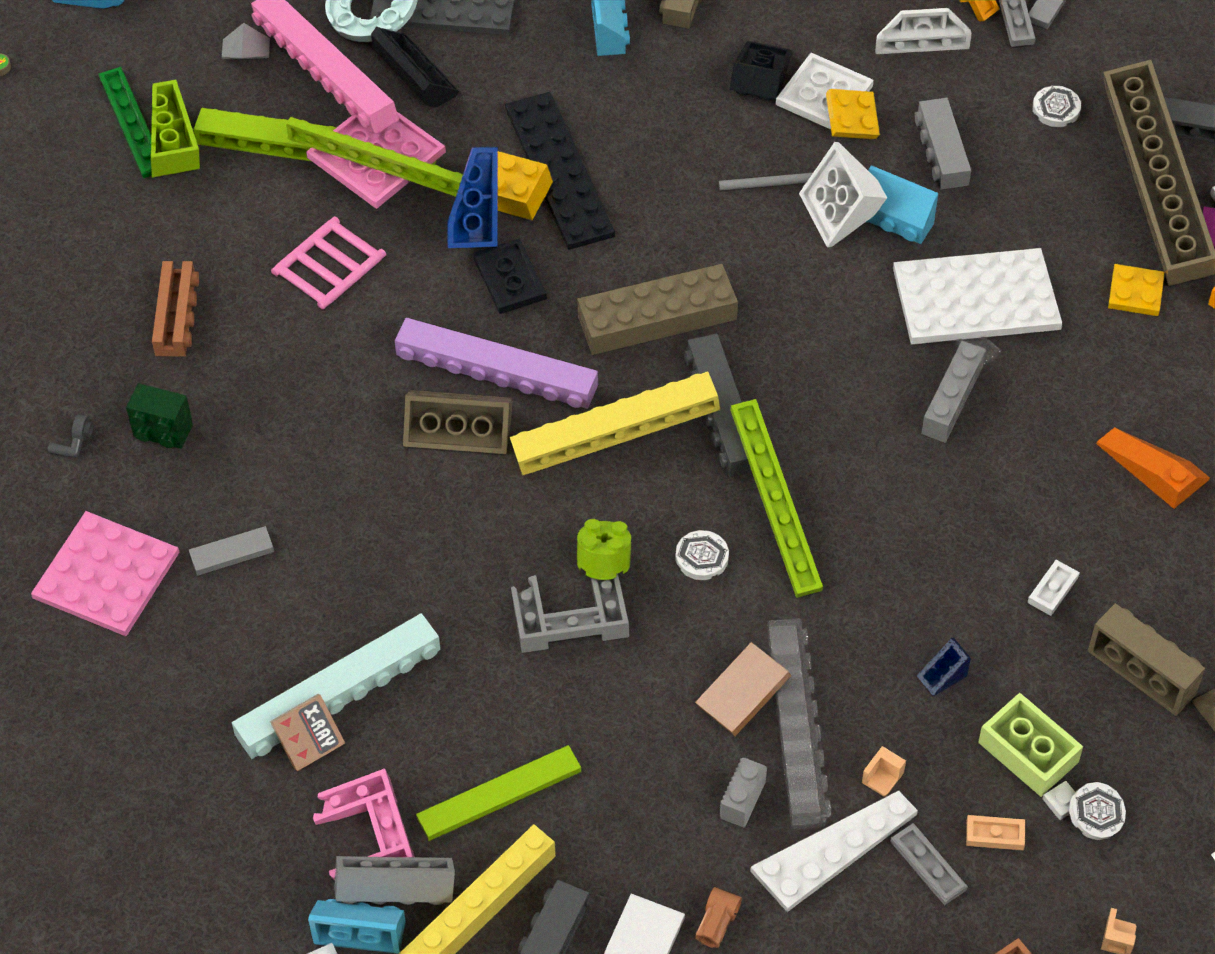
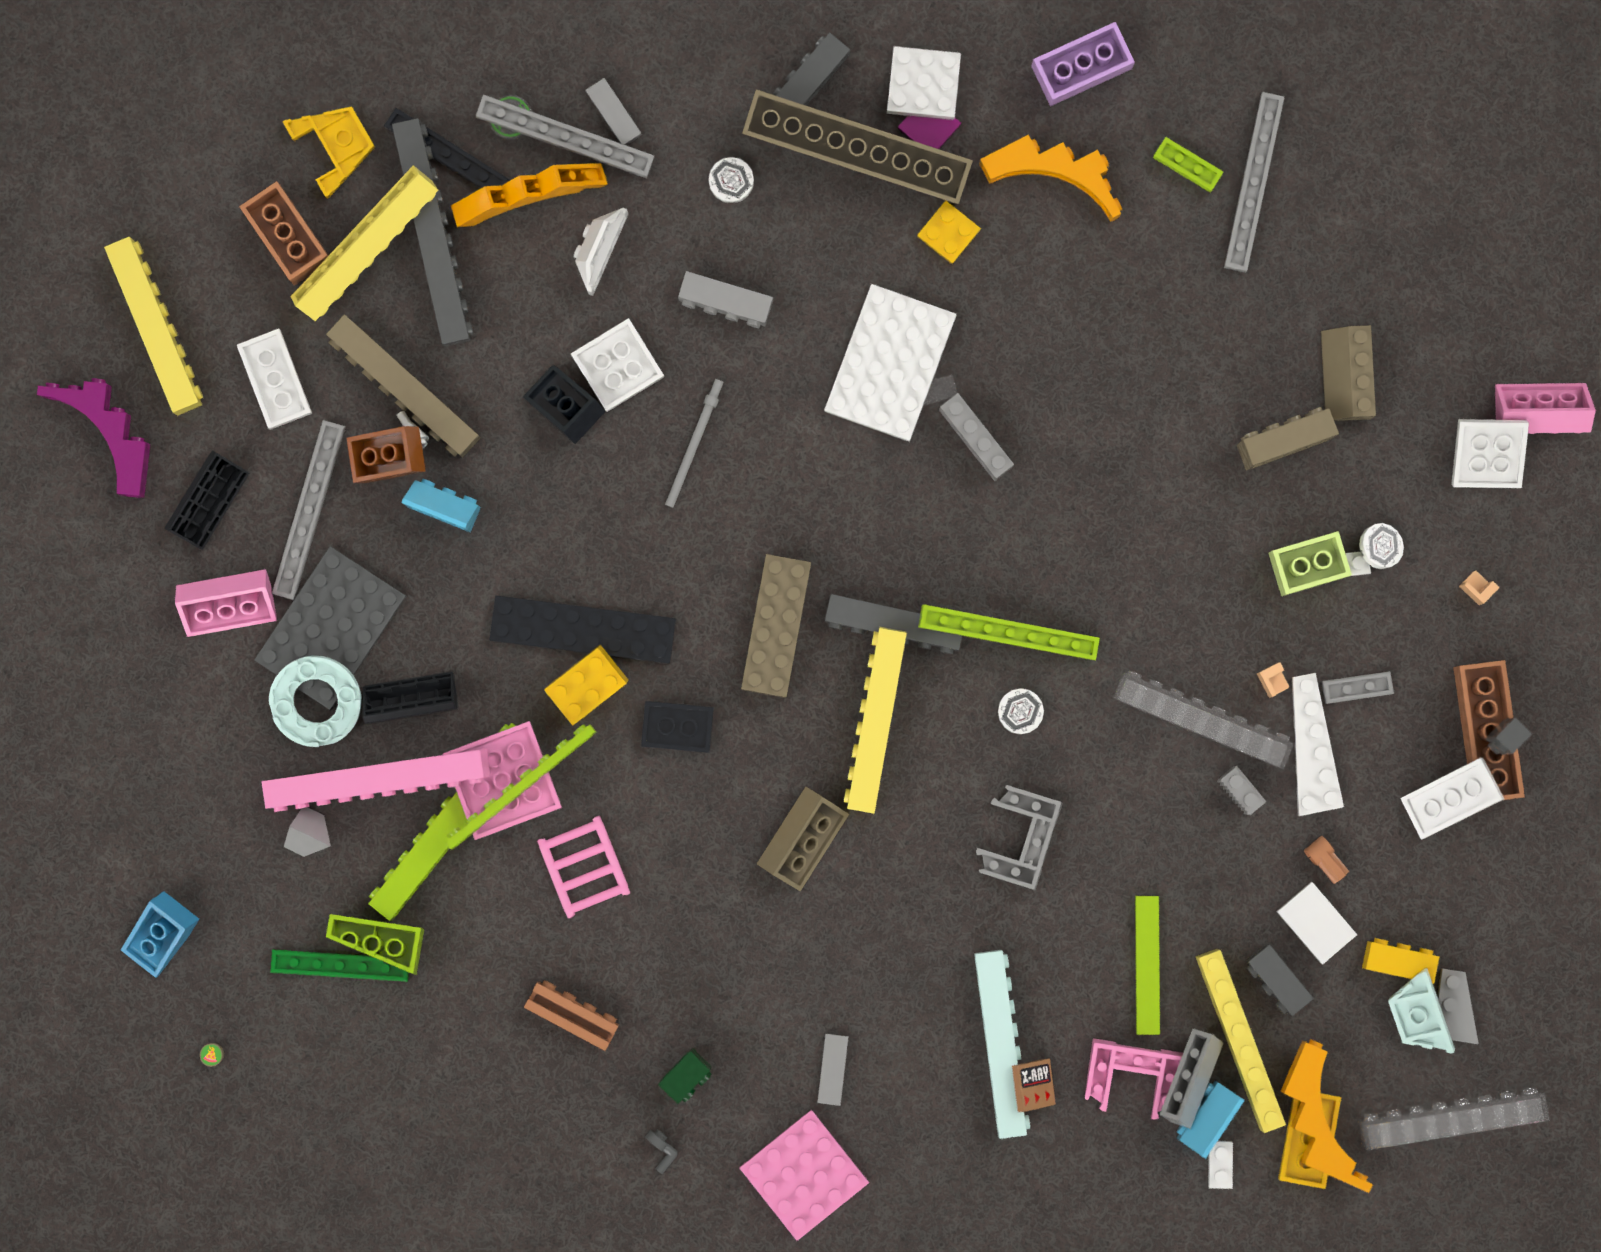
camera: 60 degrees left, 30 degrees up
(476, 203) = (614, 728): blue wedge -> none
(496, 363) = (762, 781): lavender brick -> none
(603, 549) = (976, 781): lime brick -> none
(743, 689) = (1159, 746): tile -> none
(841, 195) = (747, 420): white slope -> none
(852, 114) = (658, 357): yellow plate -> none
(907, 209) = (777, 380): medium azure slope -> none
(945, 668) = (1214, 588): clear blue slope -> none
(995, 832) = (1360, 627): light nougat plate -> none
(1053, 587) = (1185, 465): white plate -> none
(1158, 469) = (1123, 318): orange wedge -> none

